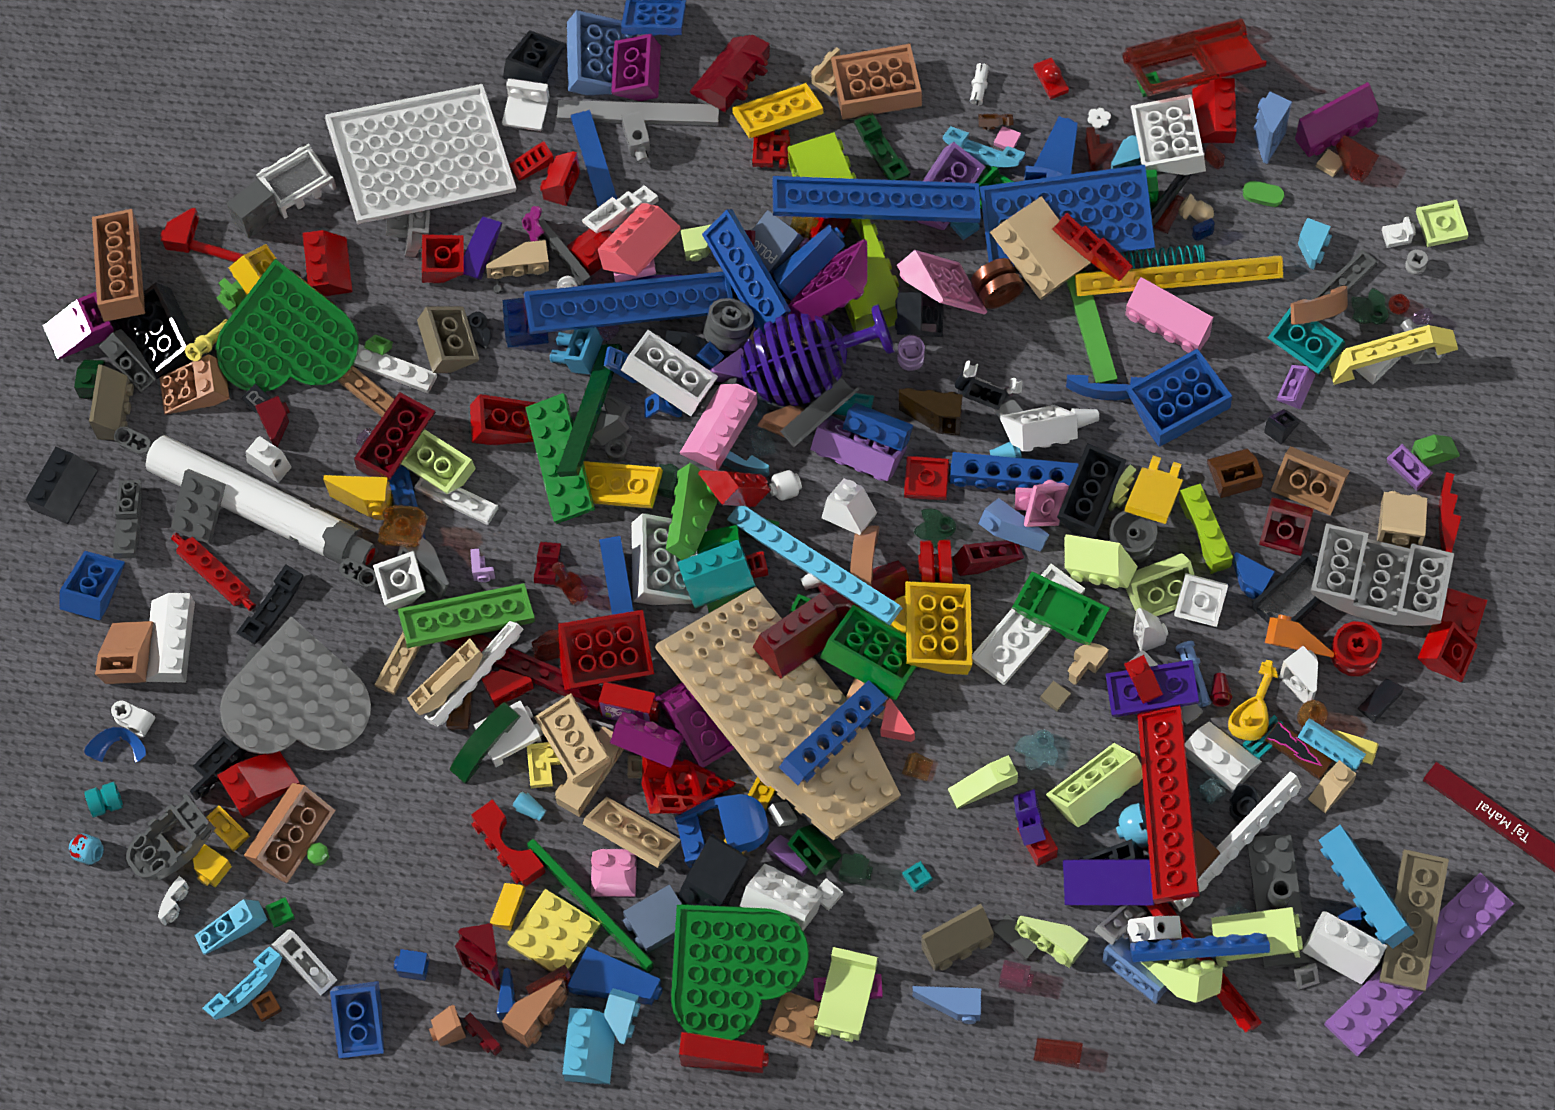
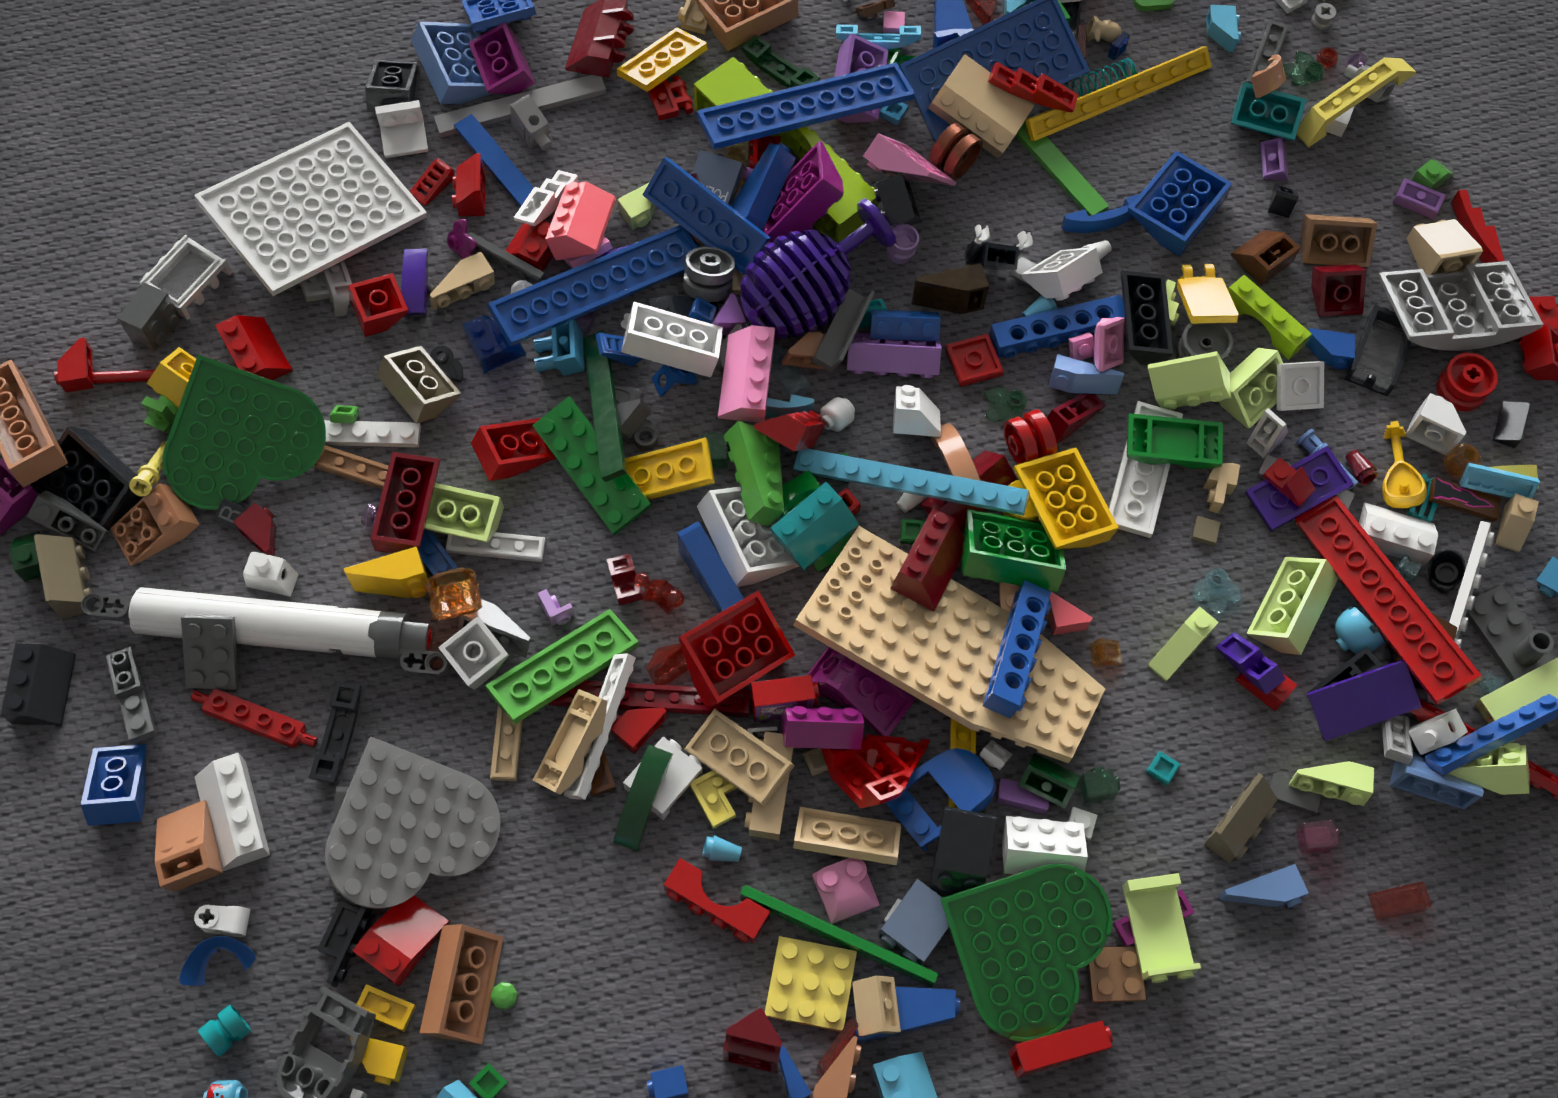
camera: 30 degrees left, 0 degrees up
(508, 906) = (745, 972): yellow slope -> none
(592, 965) = (876, 1005): none -> tan panel
(620, 1012) = (930, 1046): medium azure slope -> none
(1169, 316) = (1132, 130): bright pink slope -> none
(1292, 635) = (1408, 388): orange slope -> none

